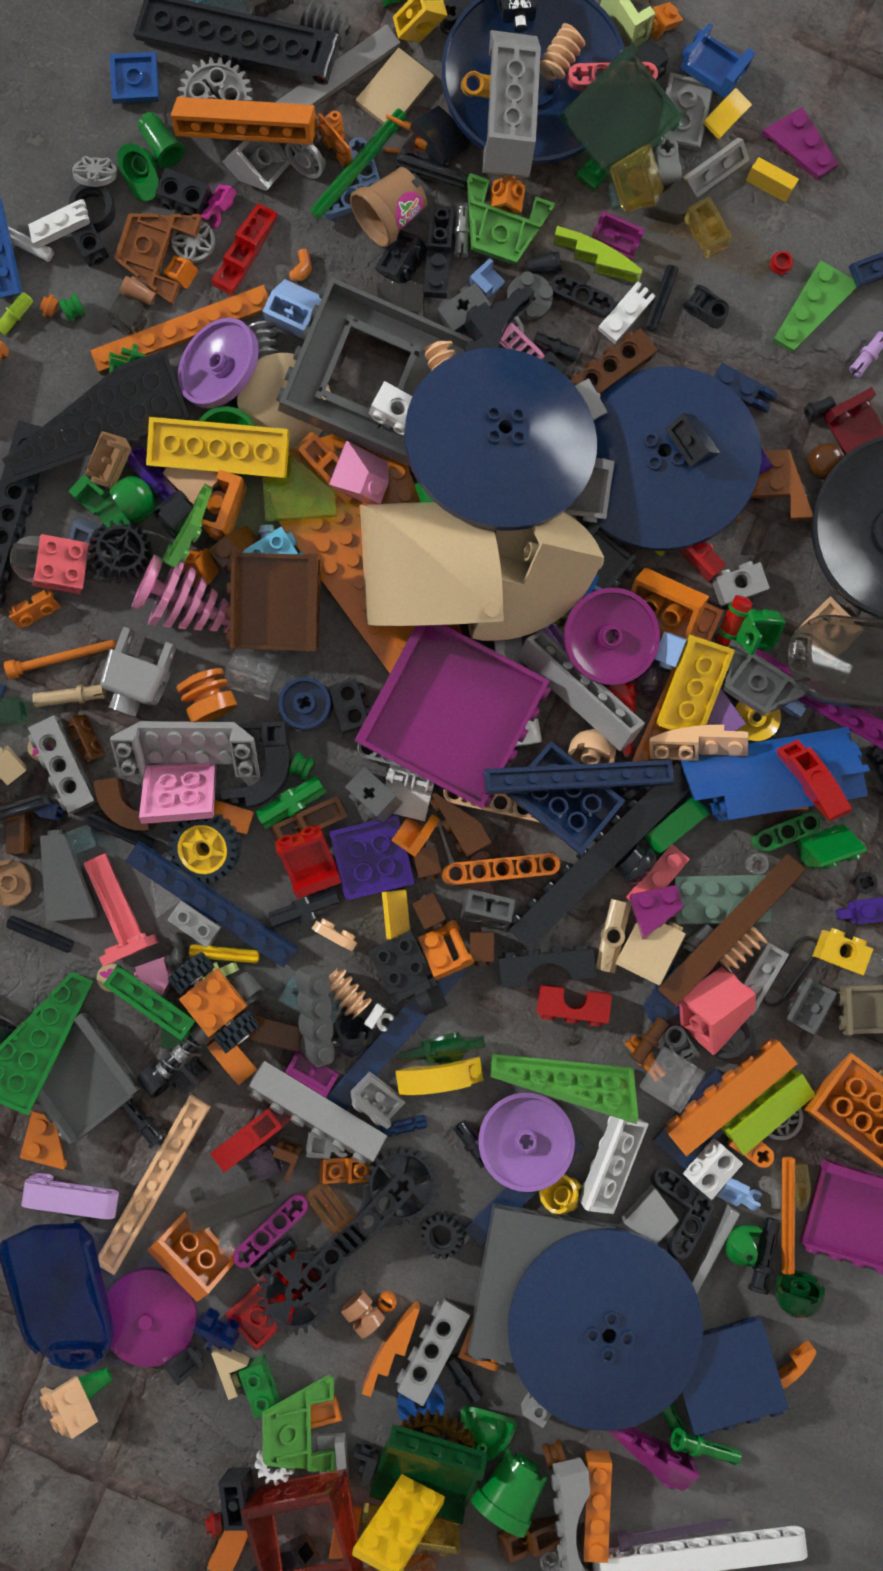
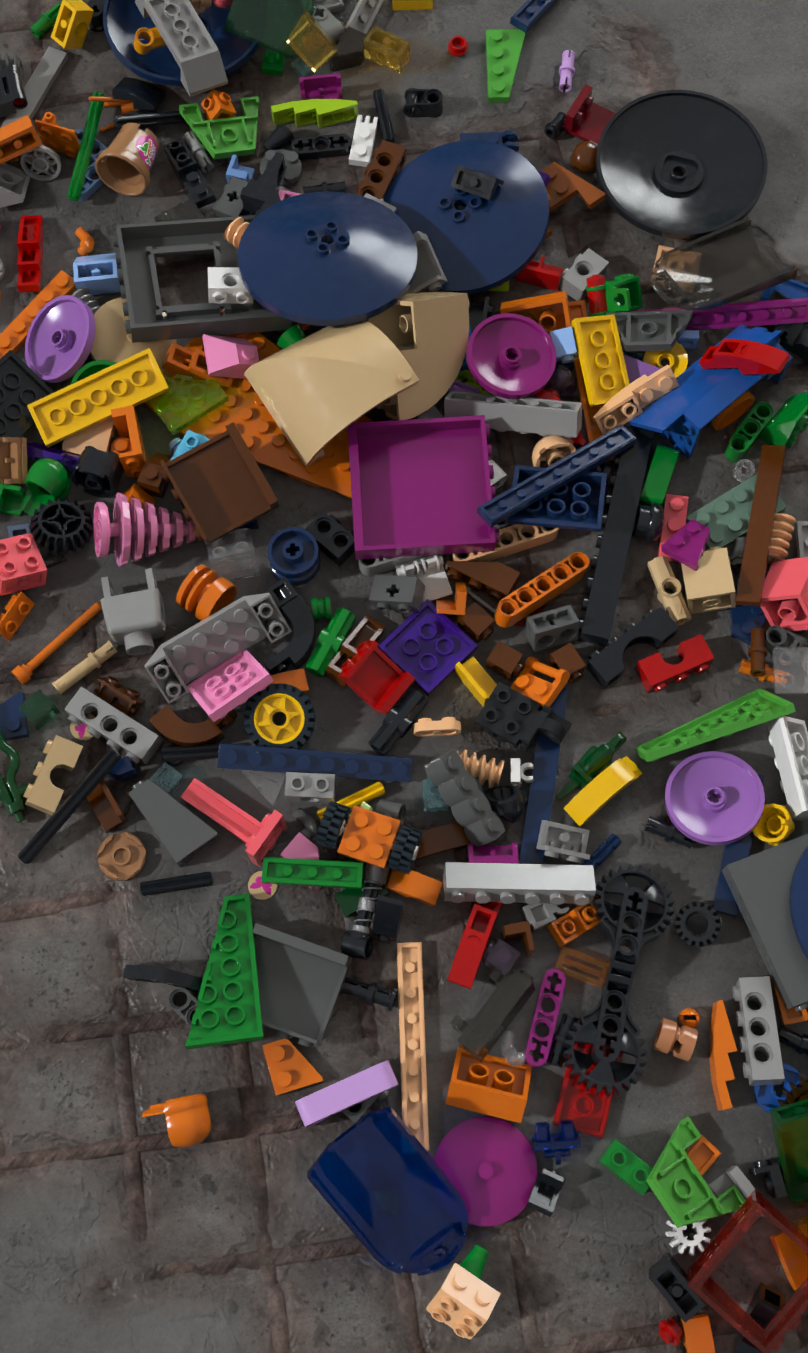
camera: 30 degrees left, 15 degrees down
(190, 531) = (114, 463): bright green wing -> none
(227, 1364) = (584, 1164): tan slope -> none
(395, 86) = (79, 82): tan tile -> none
(402, 257) = (162, 192): black bracket -> none

